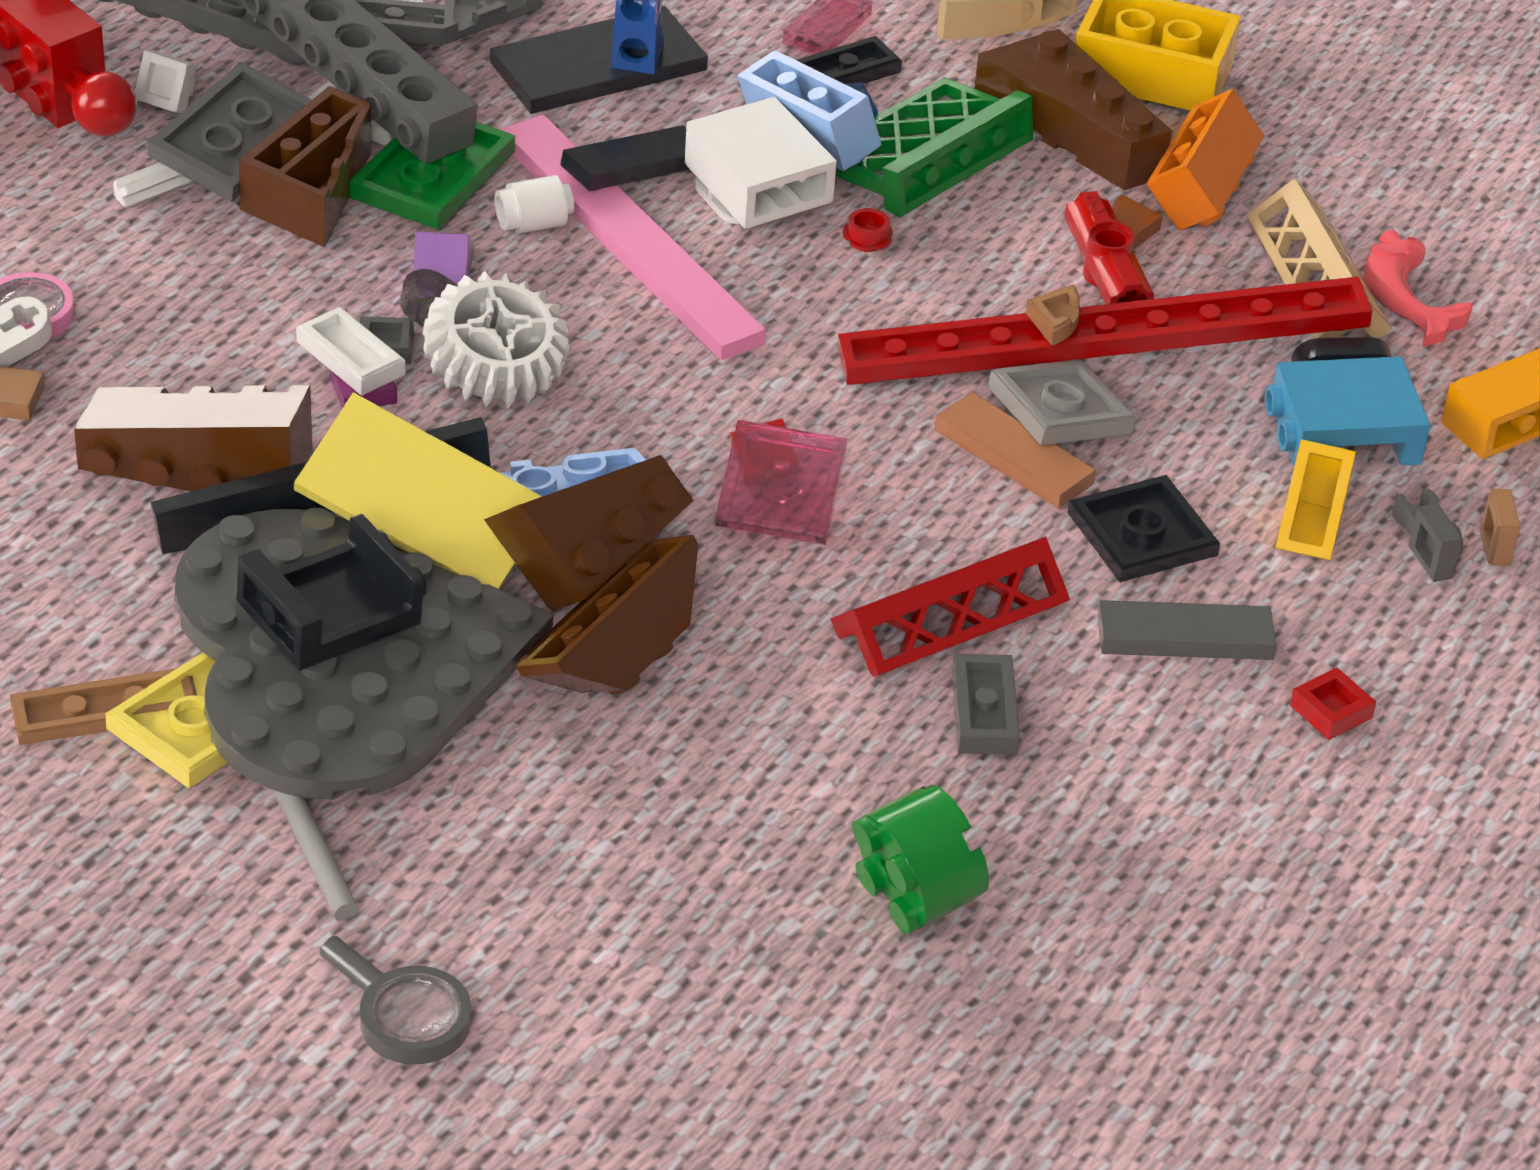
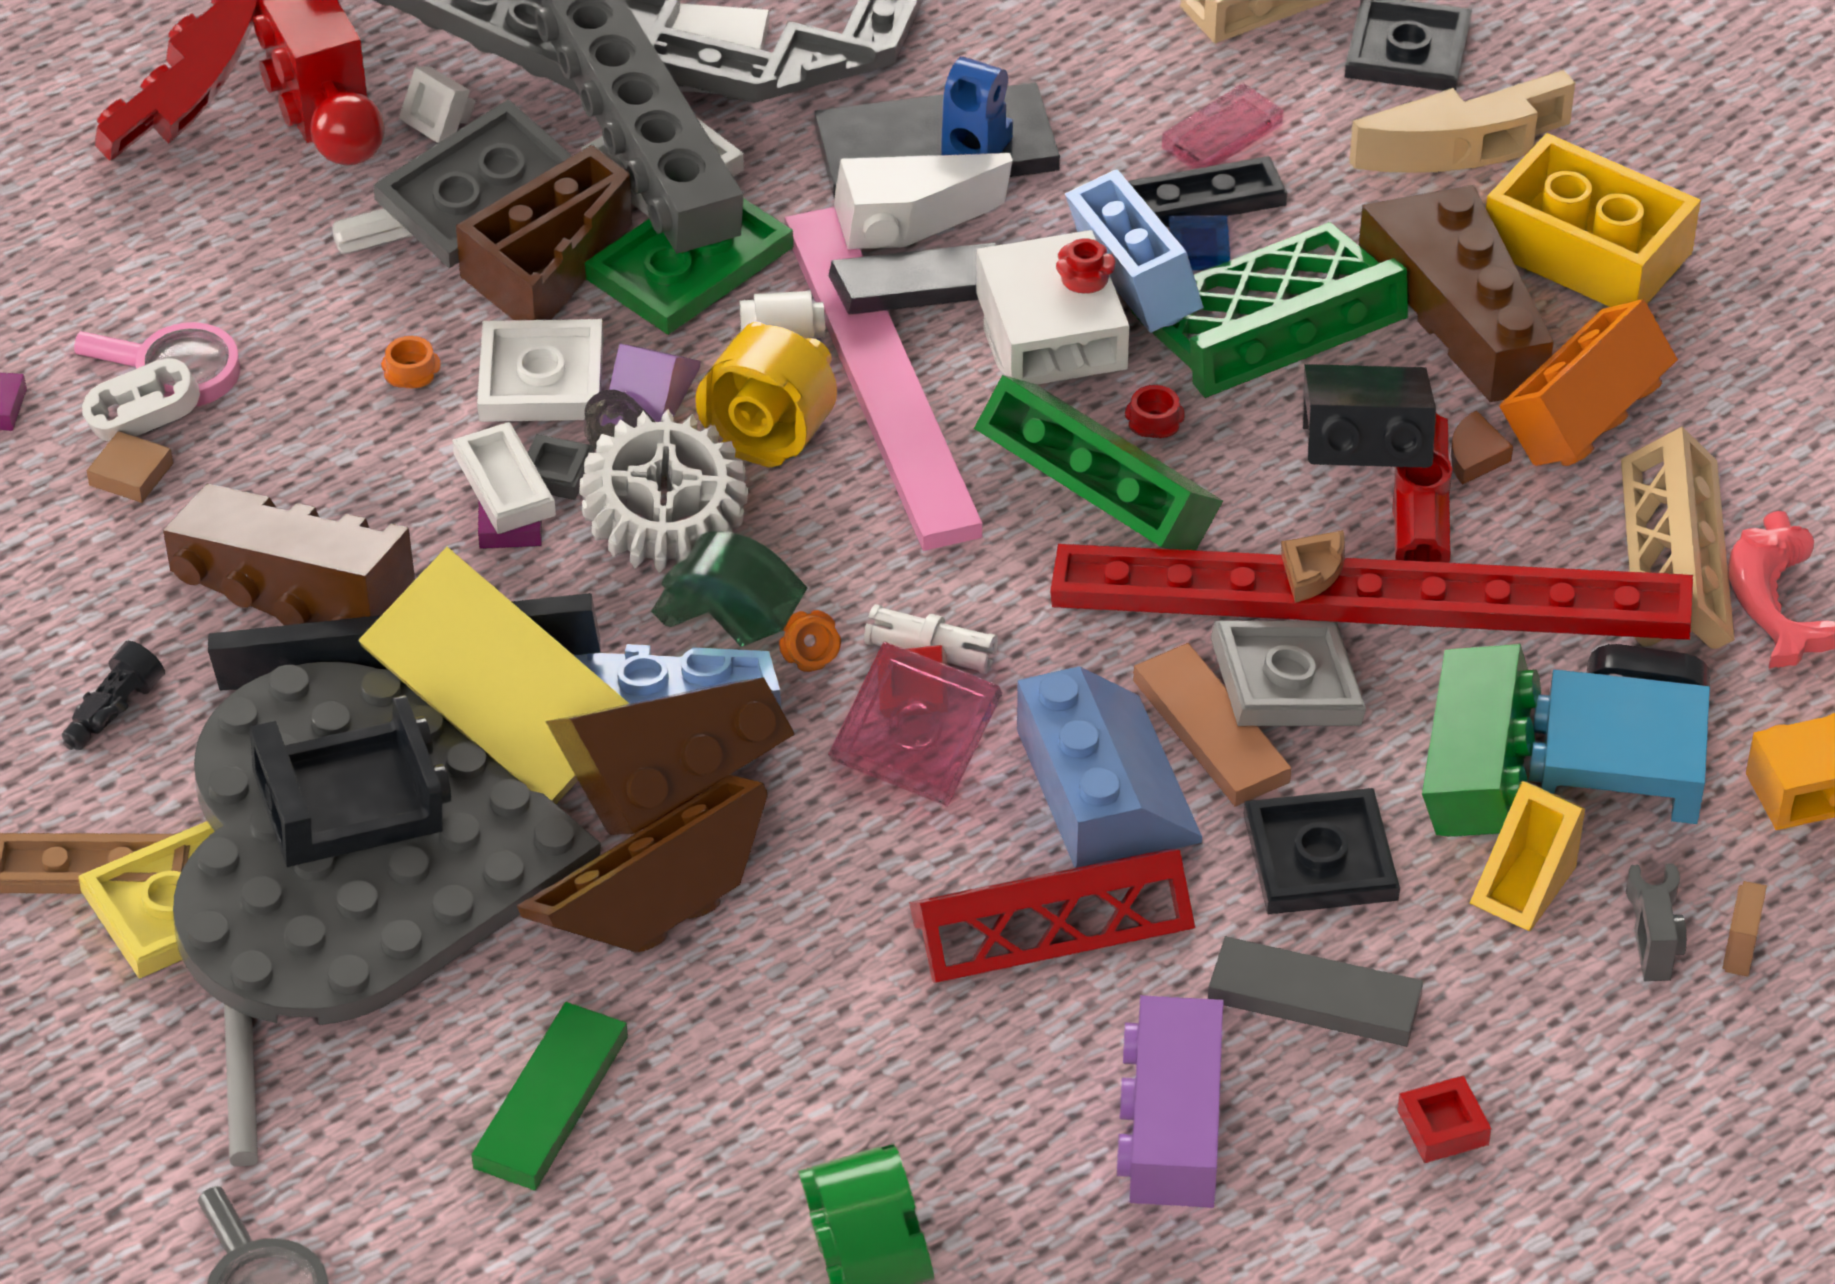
camera: 20 degrees right, 5 degrees up
(82, 547) = (131, 669): none -> black piece
(226, 278) = (410, 362): none -> orange plate
(343, 268) = (539, 369): none -> white plate
(558, 248) = (768, 393): none -> yellow brick
(589, 395) = (734, 581): none -> clear green brick
(592, 816) = (549, 1096): none -> green tile
(605, 97) = (914, 197): none -> white slope
(675, 430) = (826, 643): none -> orange plate
(723, 417) = (914, 632): none -> white pin
(785, 119) = (1085, 265): none -> red plate
(846, 269) = (1098, 464): none -> green brick
(939, 494) = (1101, 767): none -> medium blue slope
(985, 704) = (1037, 1043): dark grey plate -> none
(1051, 202) = (1368, 415): none -> black panel
(1118, 726) = (1172, 1101): none -> medium lavender brick
(1241, 424) = (1479, 738): none -> brick

